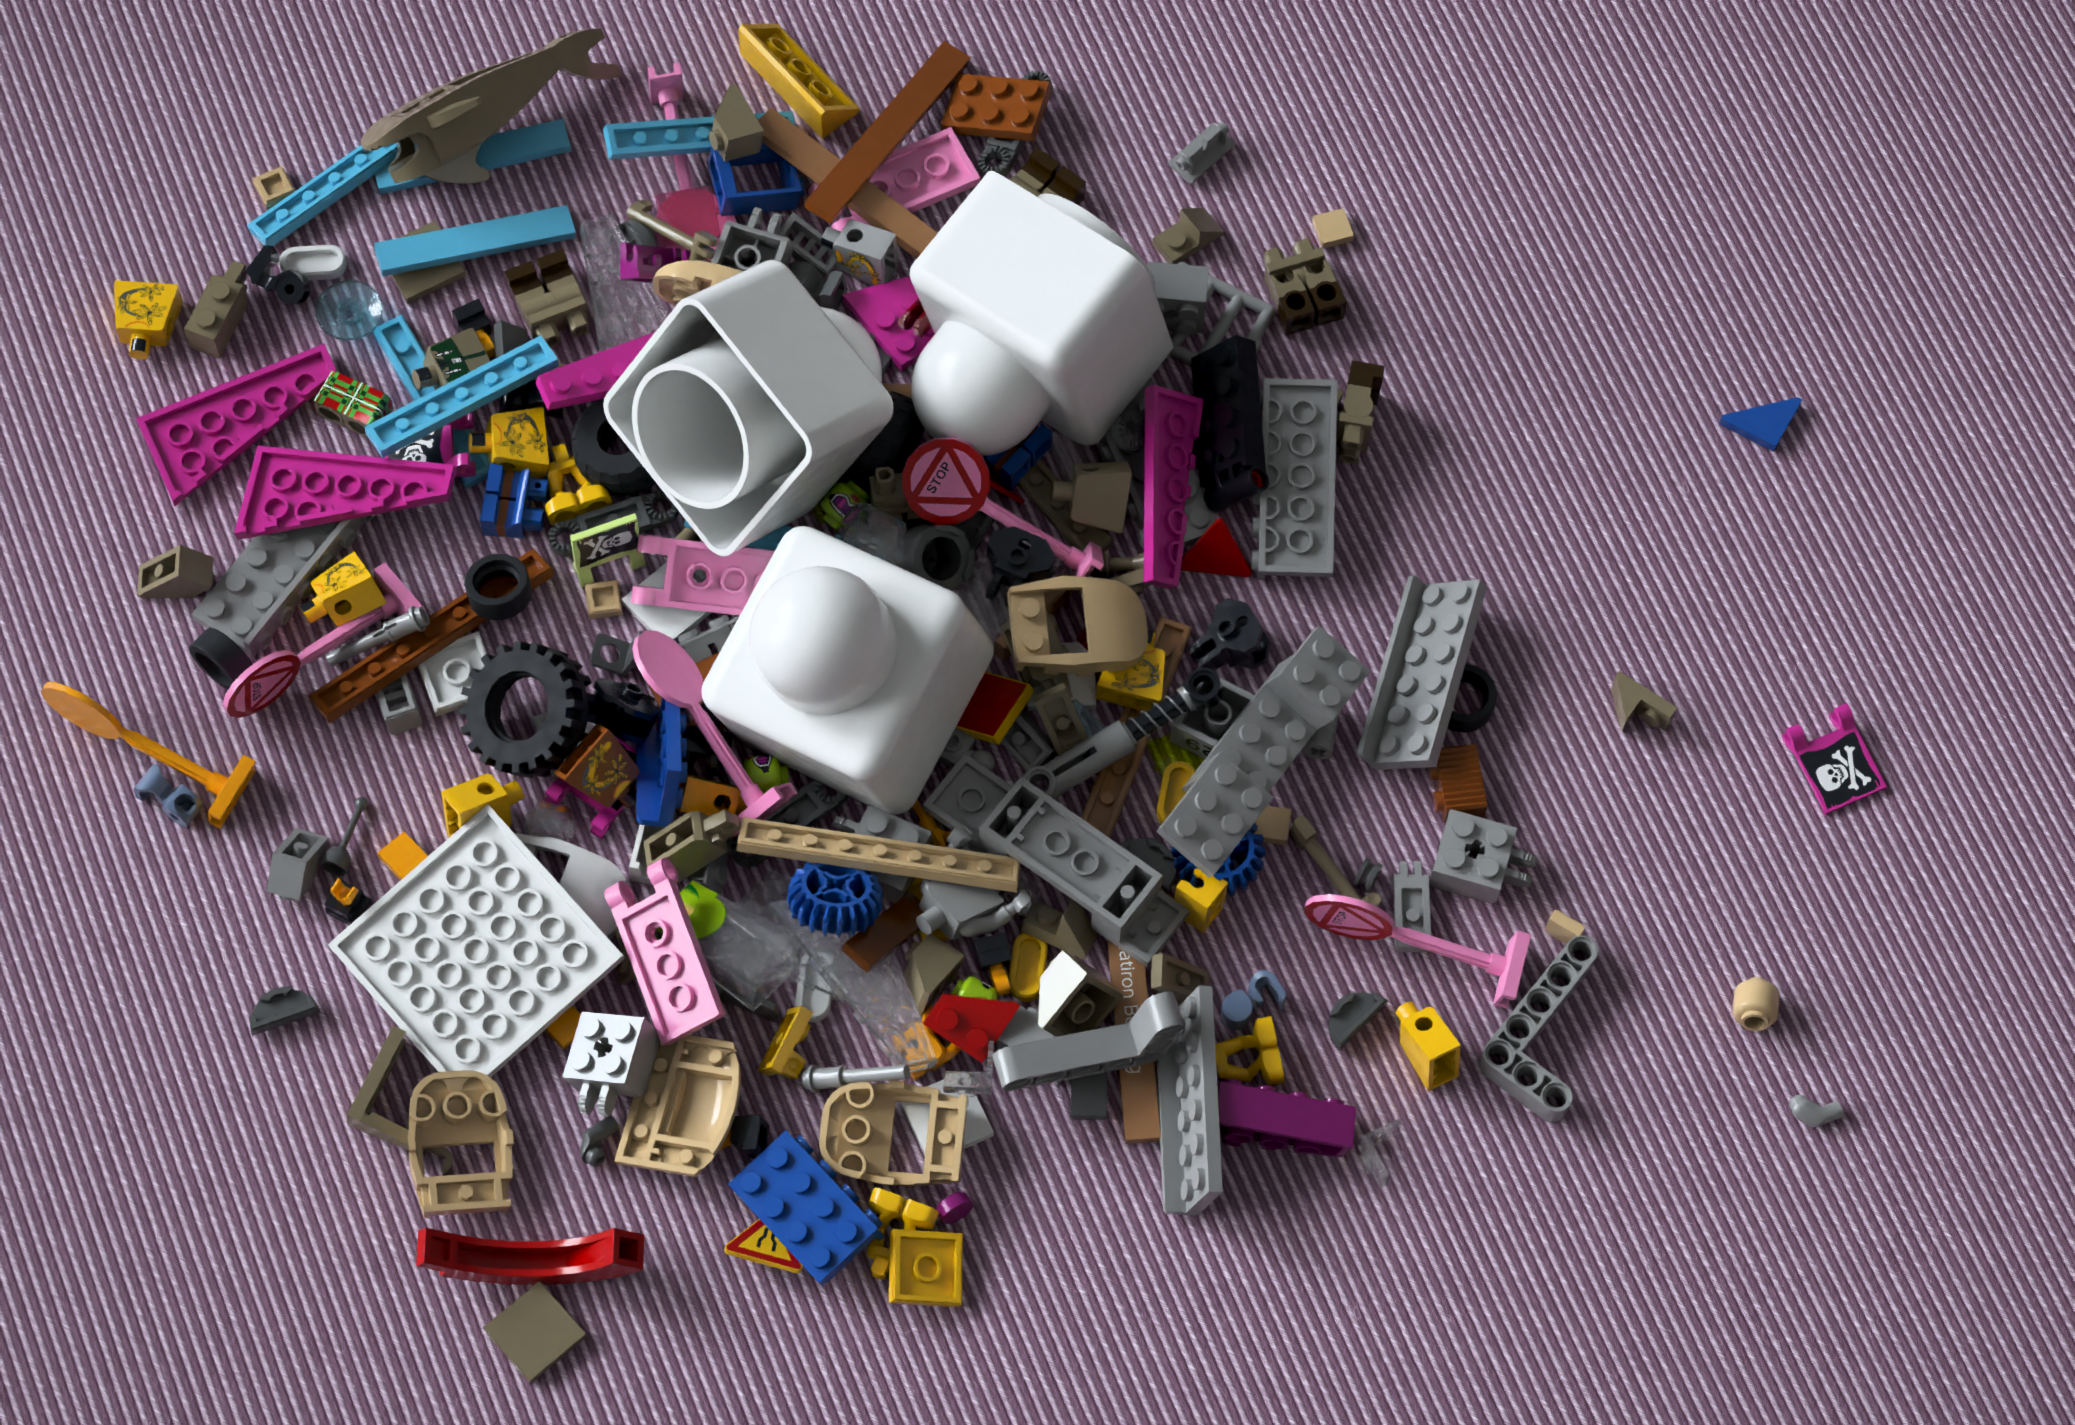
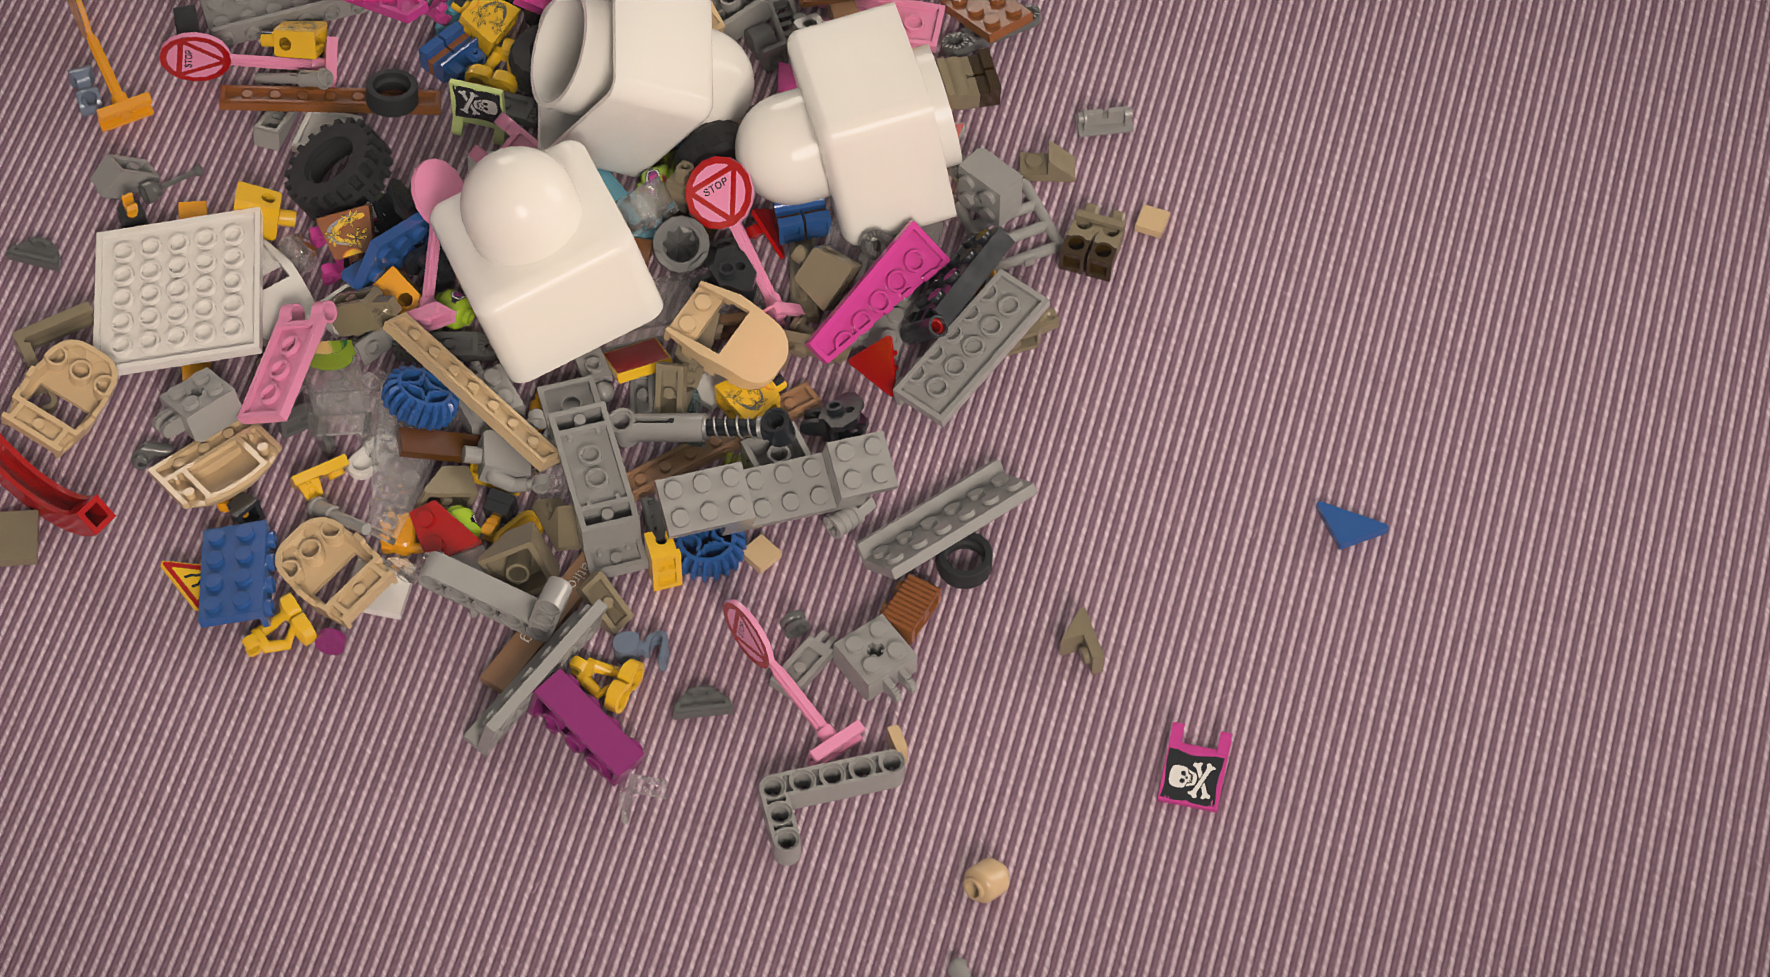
camera: 40 degrees right, 10 degrees down
(603, 599) = (457, 147): tan tile -> none
(925, 1268) = (277, 663): yellow tile -> none
(1089, 1097) = (483, 636): dark grey tile -> none
(1304, 837) = (778, 643): dark tan hinge -> none
(1355, 419) = (1055, 334): dark tan hips -> none
(1428, 1045) = (734, 740): yellow torso -> none

